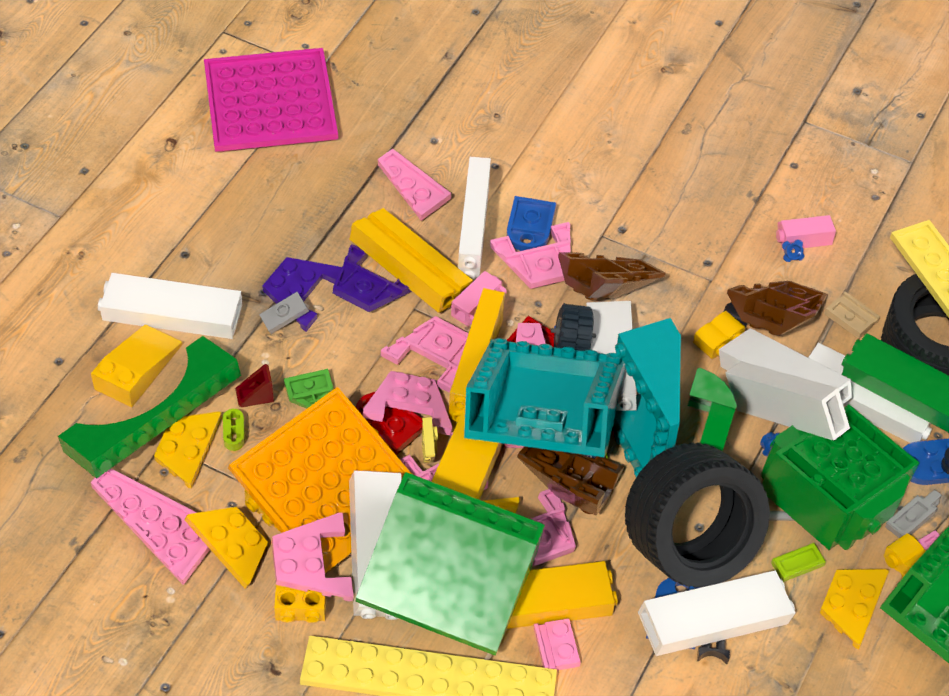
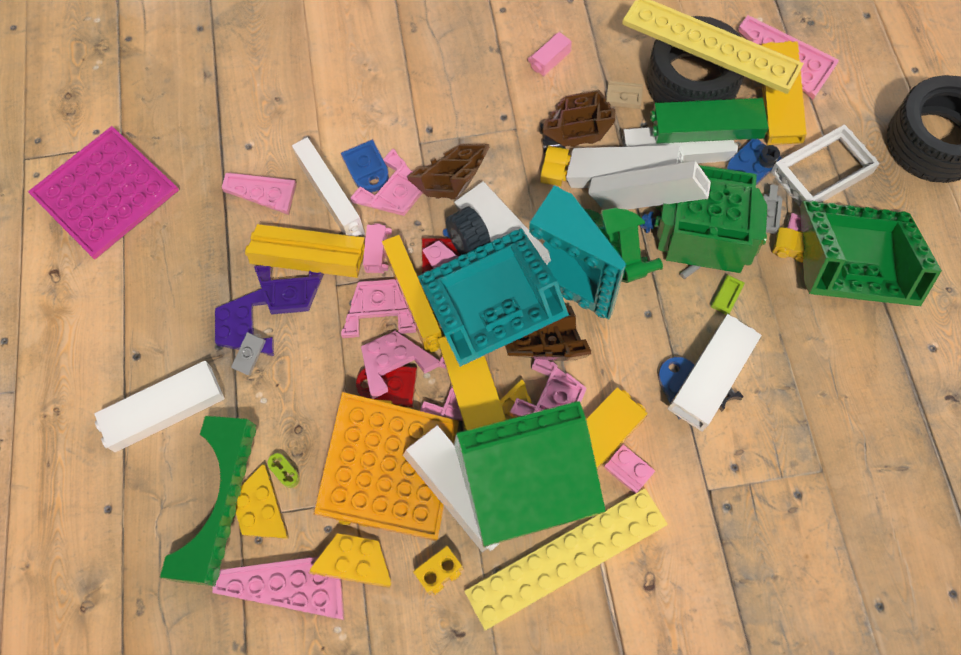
camera: 30 degrees left, 15 degrees up
(134, 365) = (169, 471): yellow slope -> none
(256, 388) = (275, 428): dark red slope -> none
(300, 558) = (417, 543): bright pink wing -> none
(308, 387) = (313, 400): bright green slope -> none
(429, 440) = (431, 383): light yellow wing -> none
(730, 539) = (663, 315): black tyre -> none
(797, 255) = (556, 72): blue plate -> none
(853, 601) = (781, 298): yellow wing -> none

